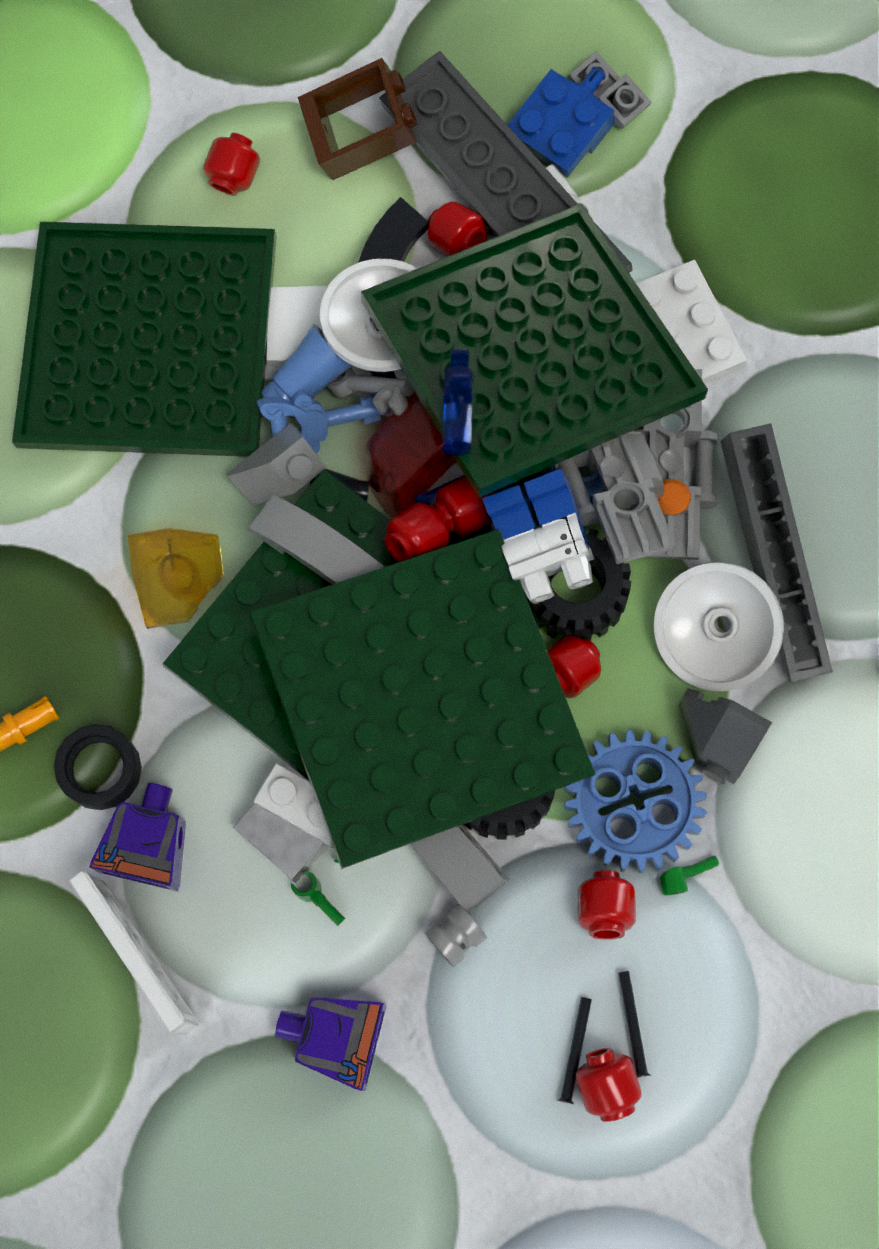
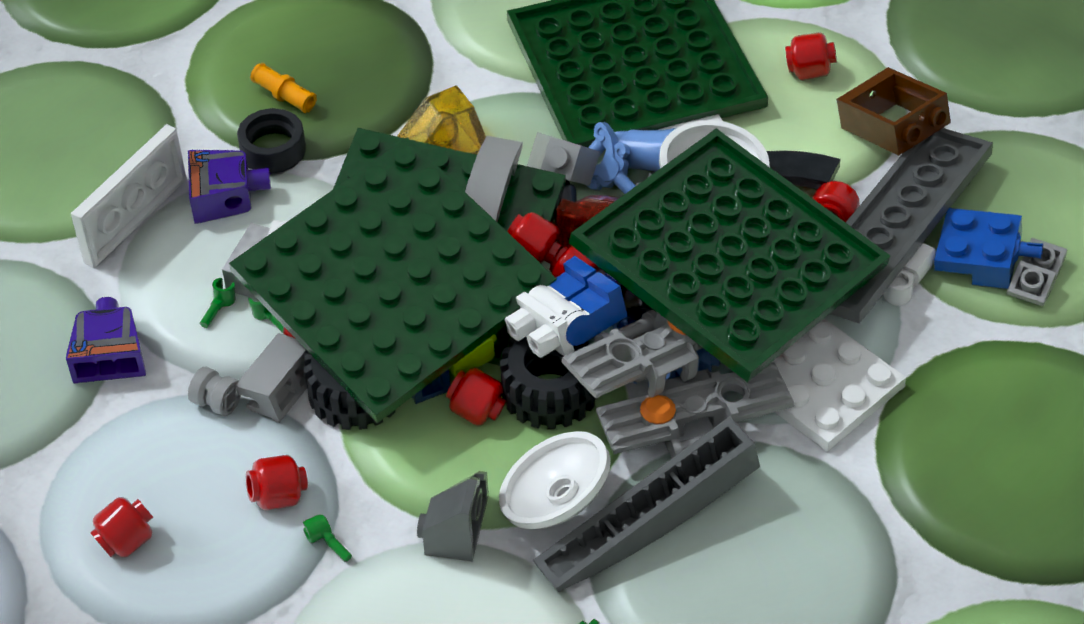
camera: 65 degrees right, 25 degrees down
(457, 405) = (647, 192): clear blue bar -> none
(575, 1051) = (166, 504): black piece -> none
(633, 1024) = (181, 539): black piece -> none
(649, 837) = (344, 485): medium blue gear -> none

